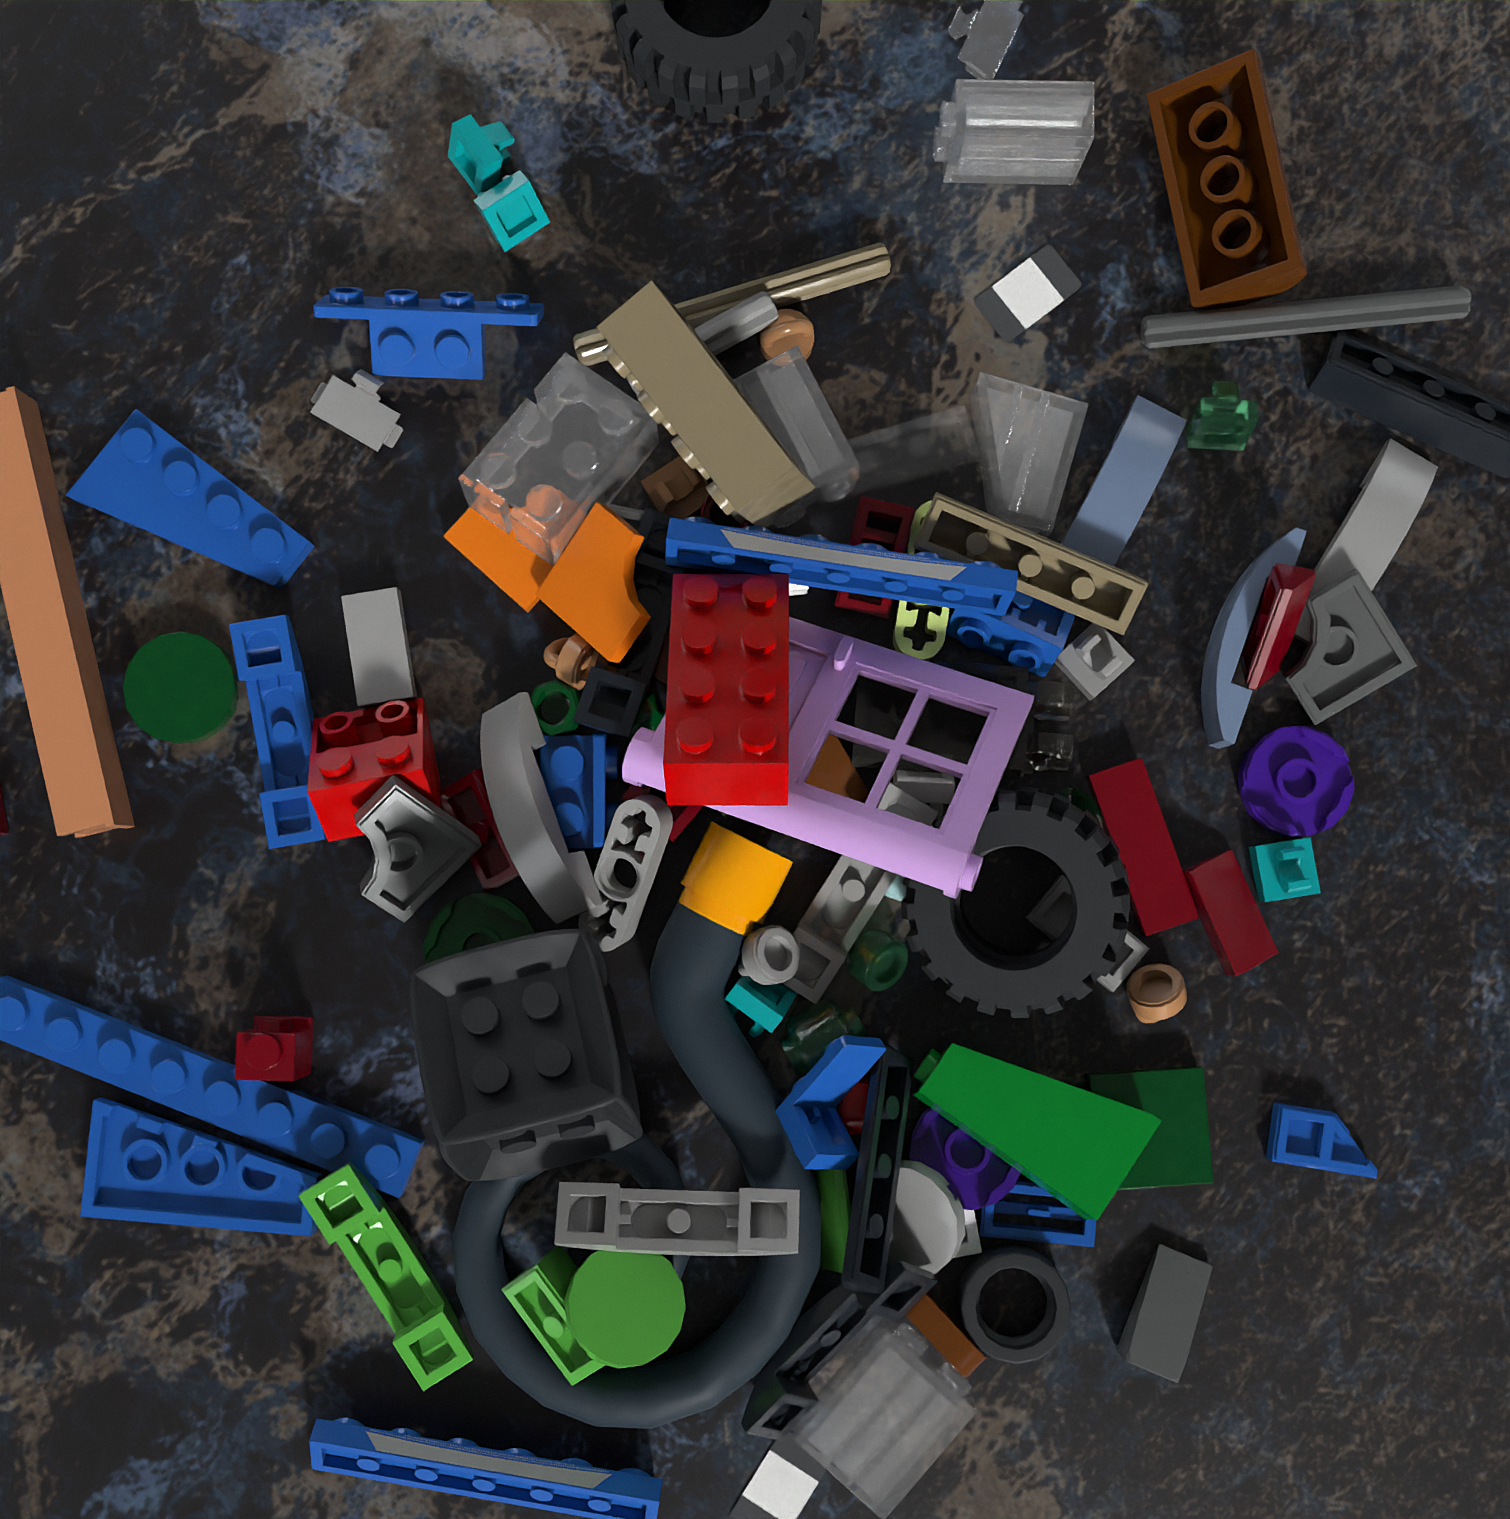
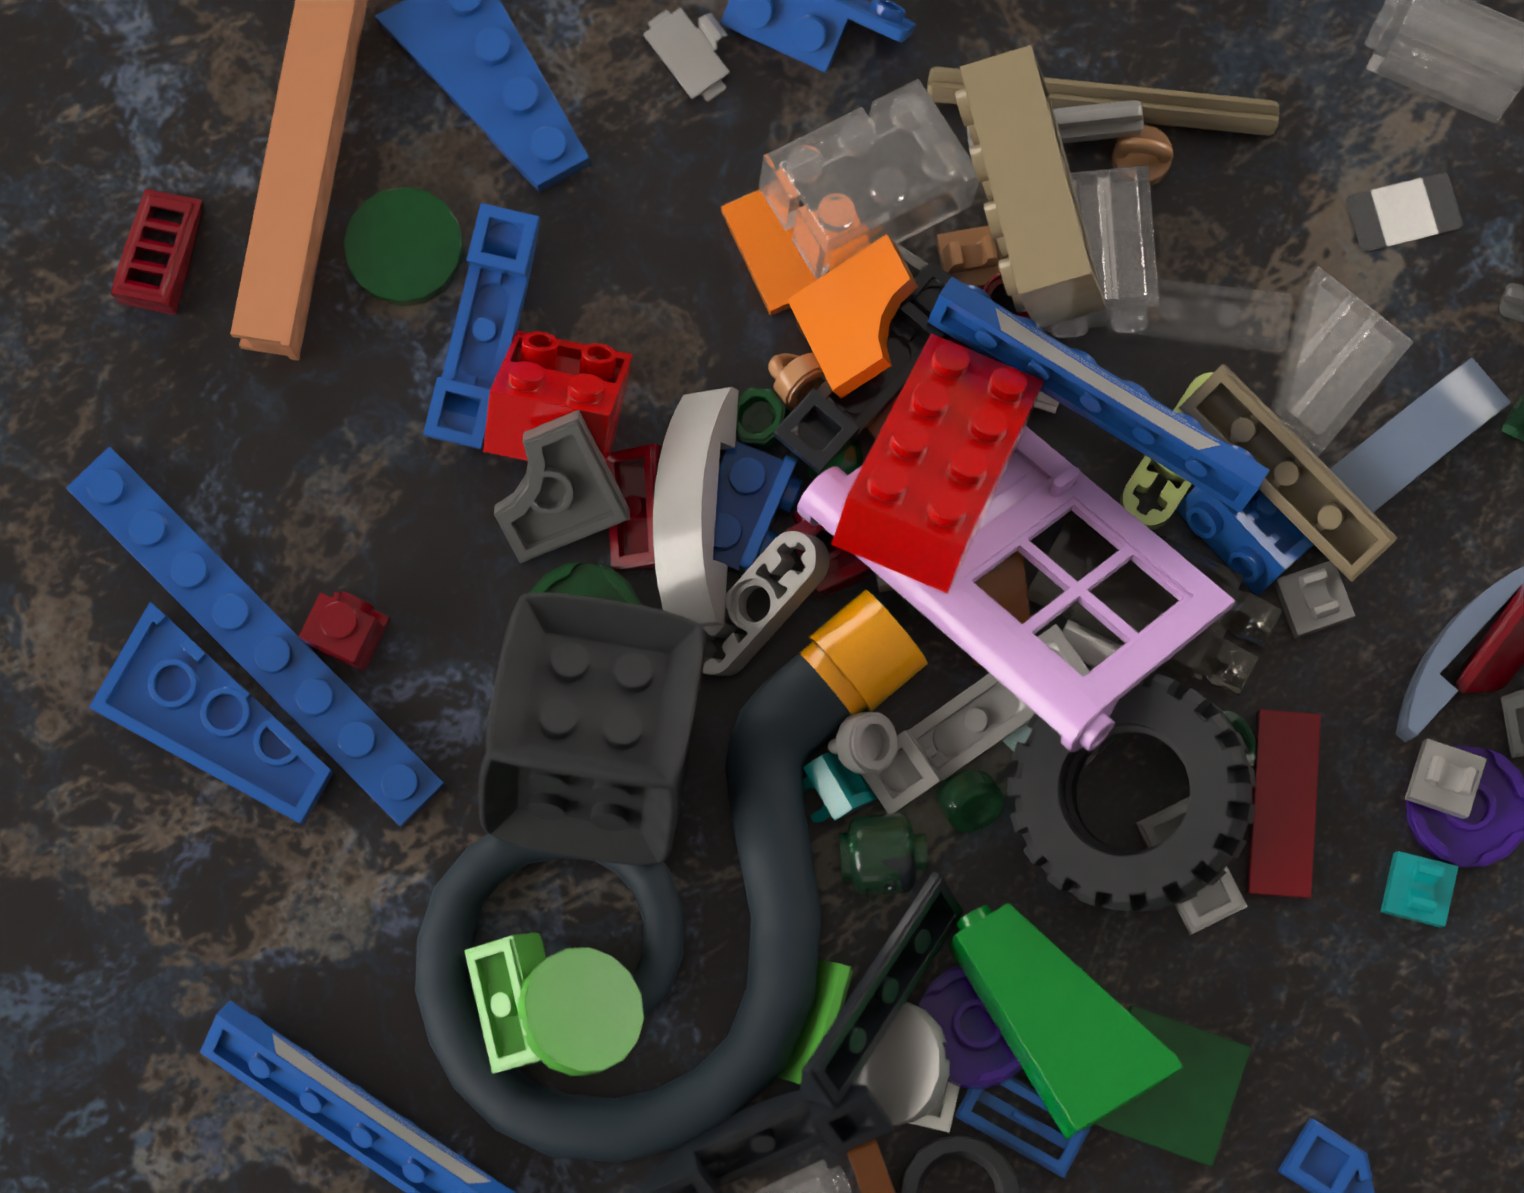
camera: 30 degrees right, 5 degrees down
(378, 647) = (611, 287): light grey tile -> none
(392, 1272) = (359, 893): bright green slope -> none
(677, 1220) = (664, 955): light grey slope -> none
(810, 1110) = (844, 903): blue bracket -> none
(853, 1107) = (881, 928): red tile -> none
(885, 510) = (1169, 365): dark red slope -> none
(1156, 992) = (1235, 953): medium nougat tile -> none
(1229, 913) = (1344, 907): dark red slope -> none
(1270, 768) = (1445, 778): none -> light grey tile

